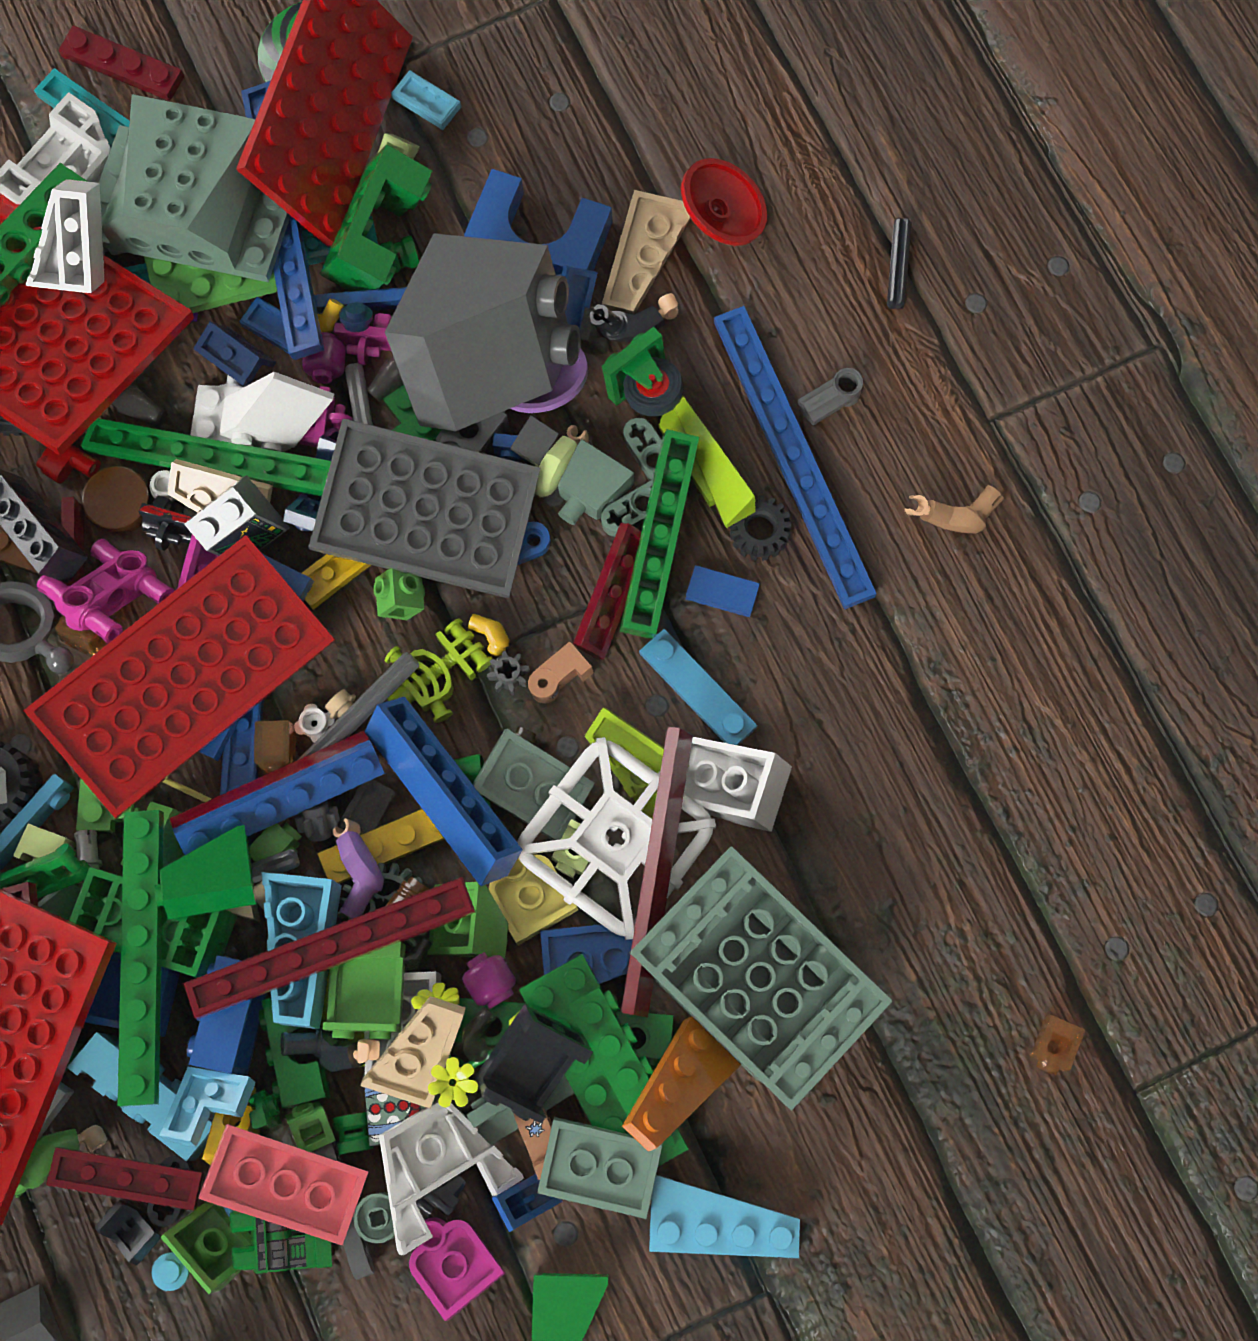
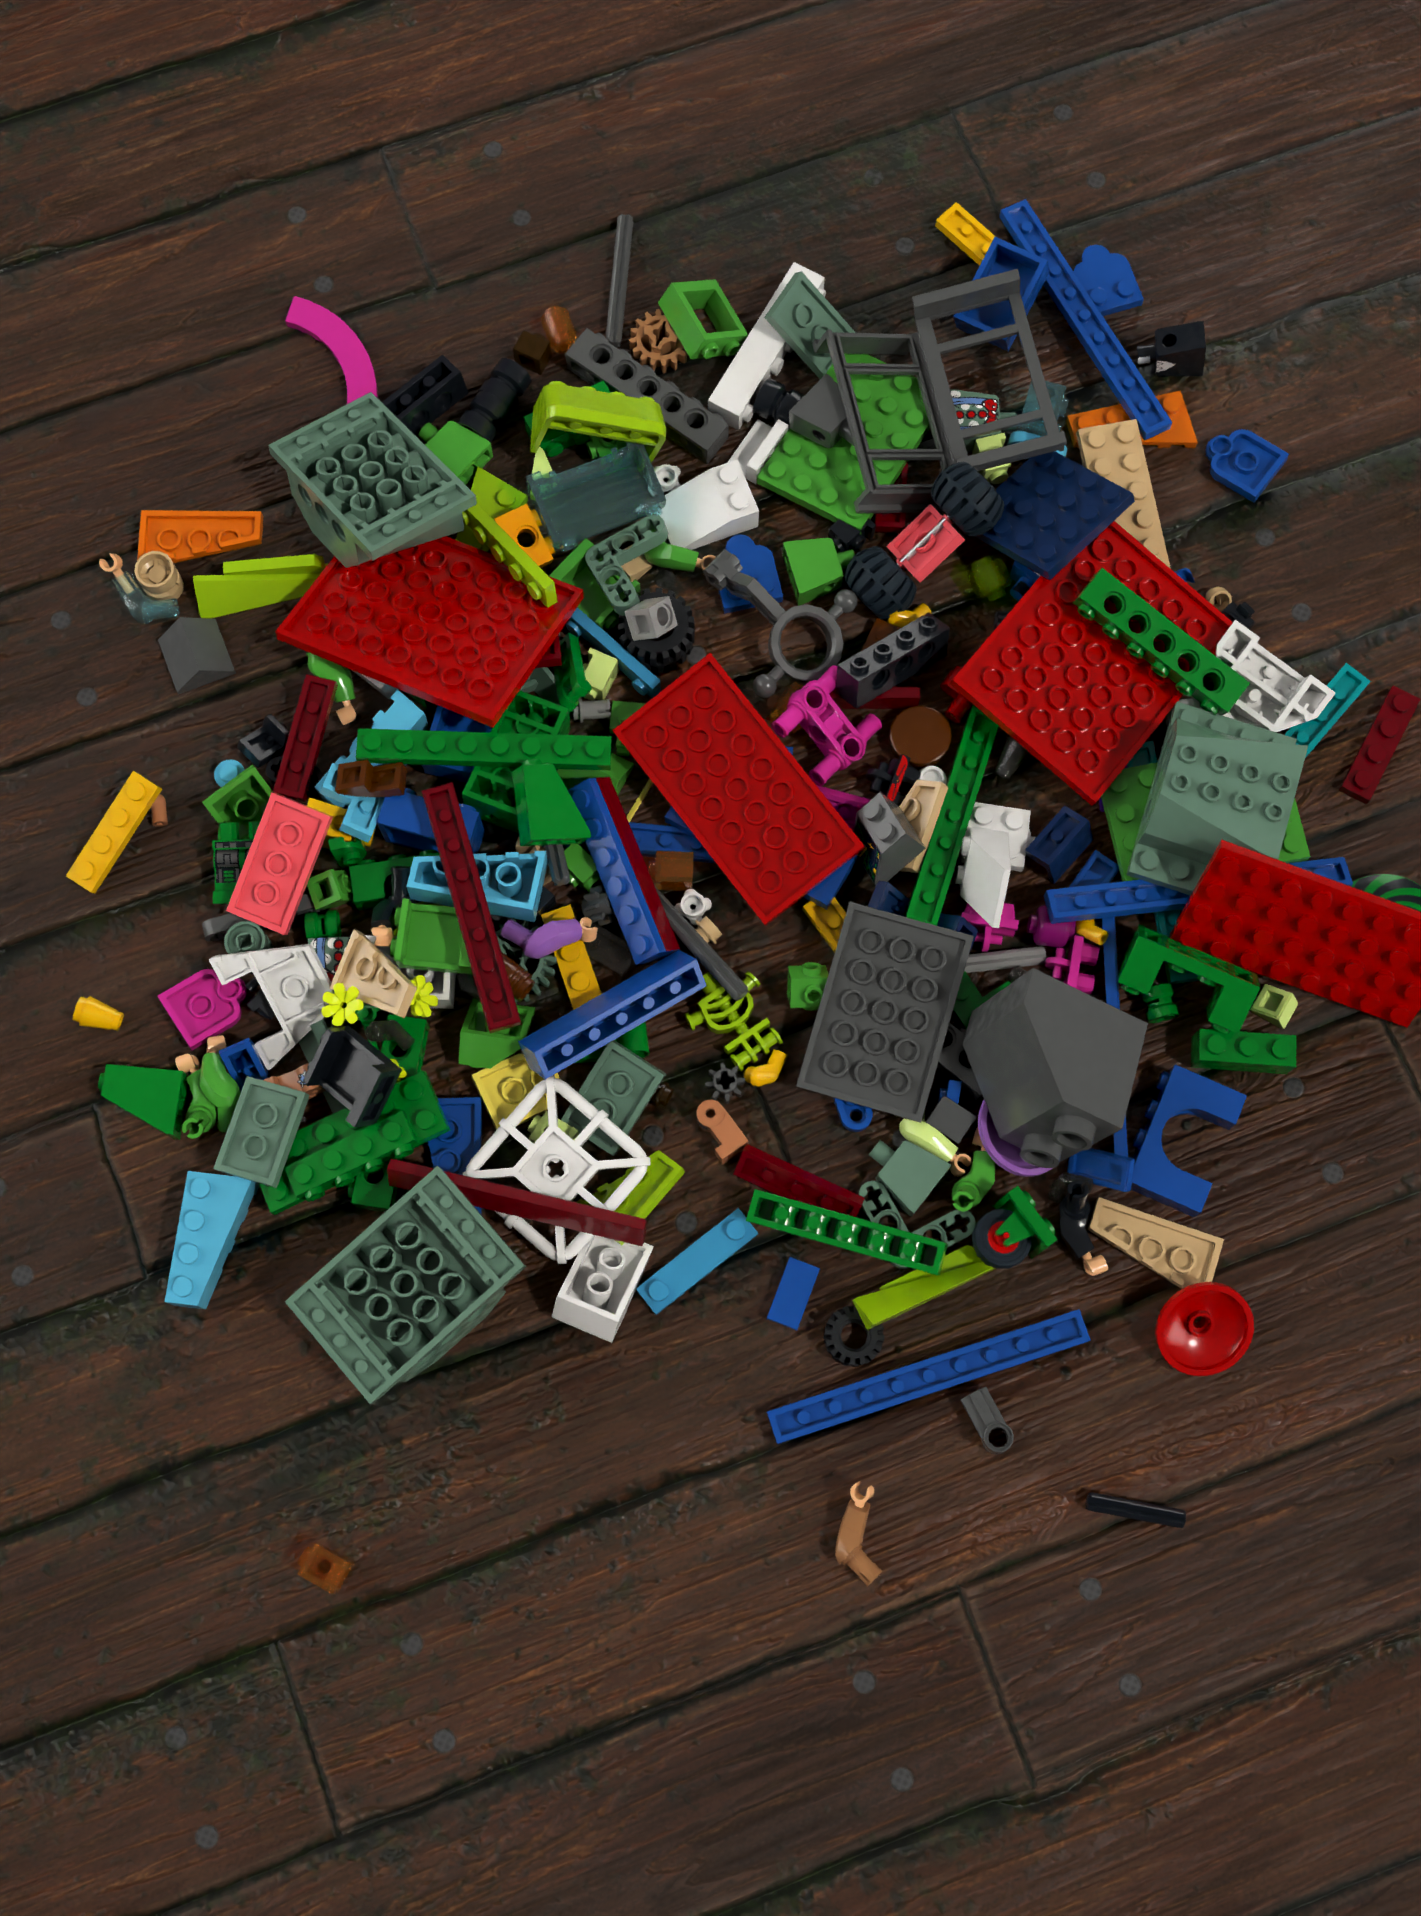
camera: 90 degrees right, 0 degrees up
(71, 240) = (1159, 692): white wedge -> none
(181, 1087) = (365, 780): none -> reddish brown slope
(356, 317) = (1087, 955): dark blue plate -> none
(426, 100) = (1332, 1037): medium azure plate -> none
(446, 161) = (1243, 1051): none -> green brick
(489, 980) = (435, 1045): magenta head -> none
(546, 1230) = (217, 1083): none -> bright green arm
(569, 1247) = (201, 1112): none -> bright green arm
(591, 416) = (973, 1186): none -> bright green arm
(680, 1083) = (319, 1202): orange wing -> none

